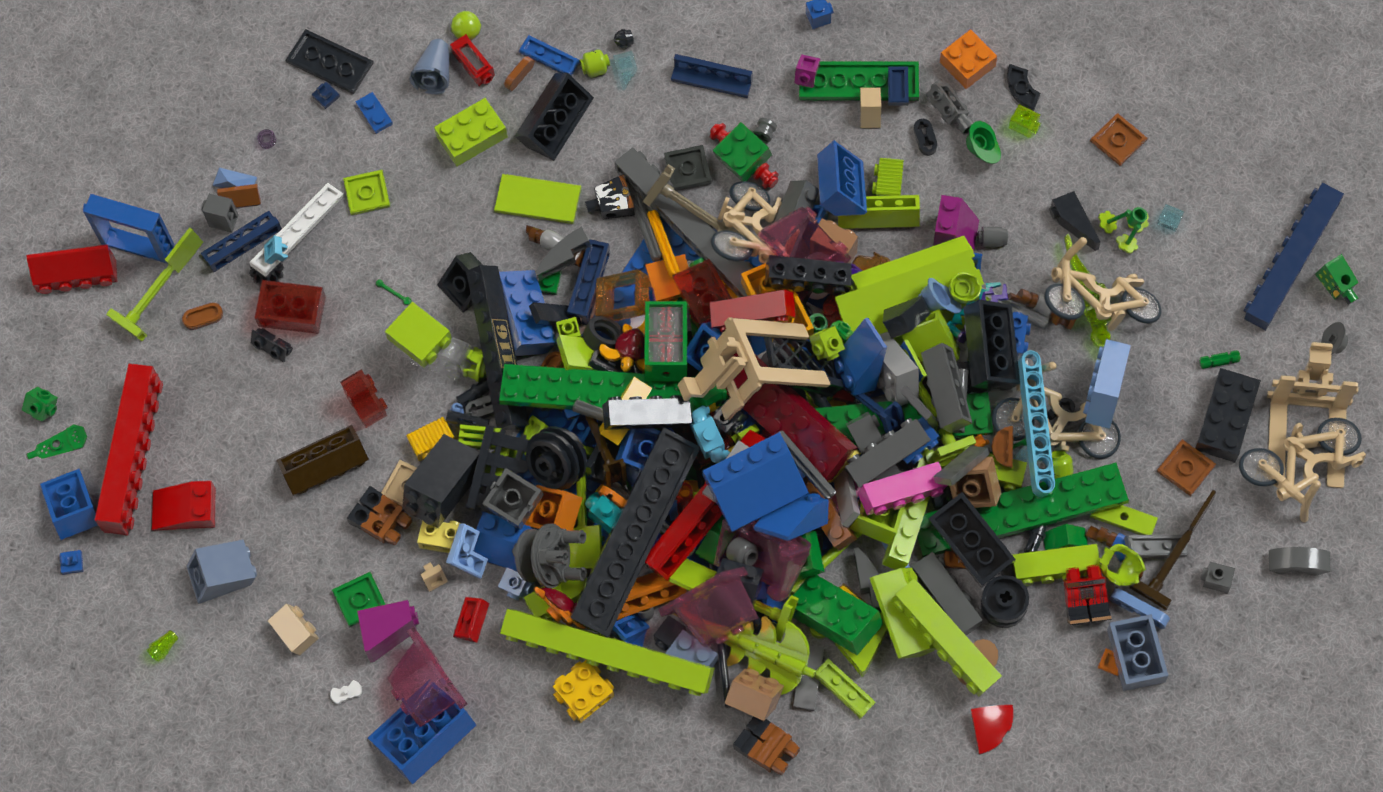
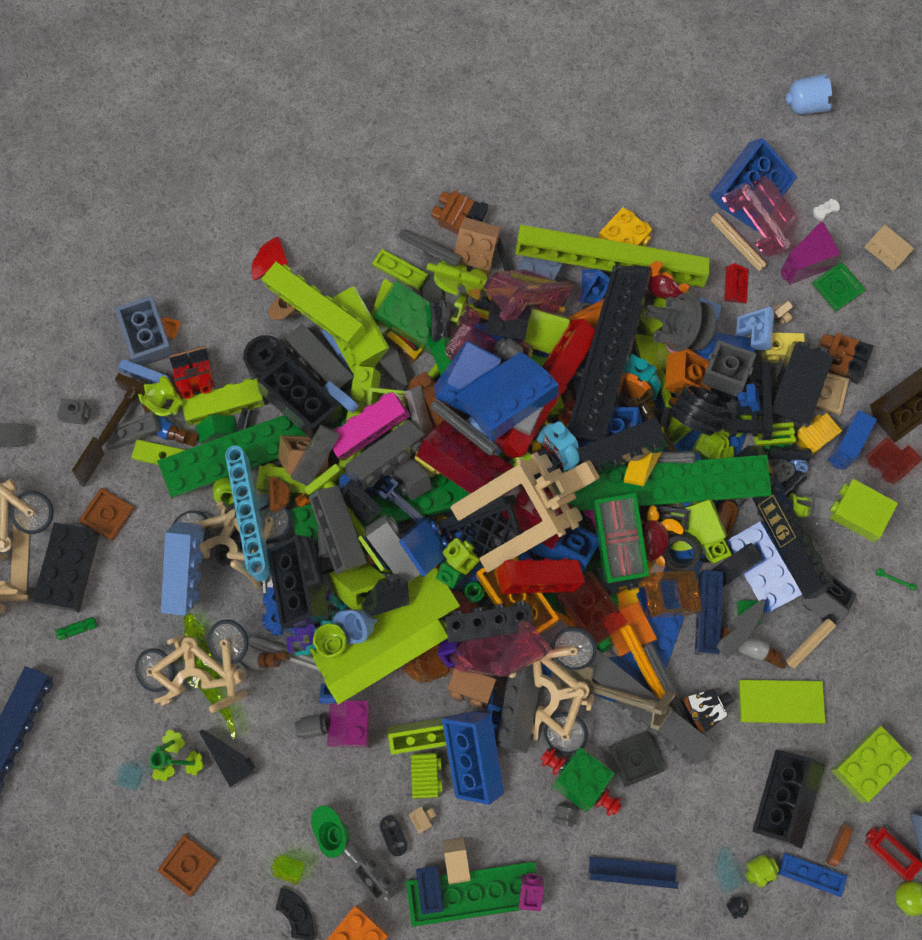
camera: 165 degrees right, 5 degrees up
(400, 421) = (851, 440): none -> blue brick
(456, 668) = (738, 241): none -> tan axle
(496, 241) = (810, 643): none -> tan axle
(497, 464) = (750, 398): none -> blue tile
(807, 704) = (430, 247): none -> dark grey axle
(809, 596) = (440, 320): none -> black hinge
(896, 145) = (421, 819): none -> tan tile
(928, 530) = (341, 397): none -> medium blue beam

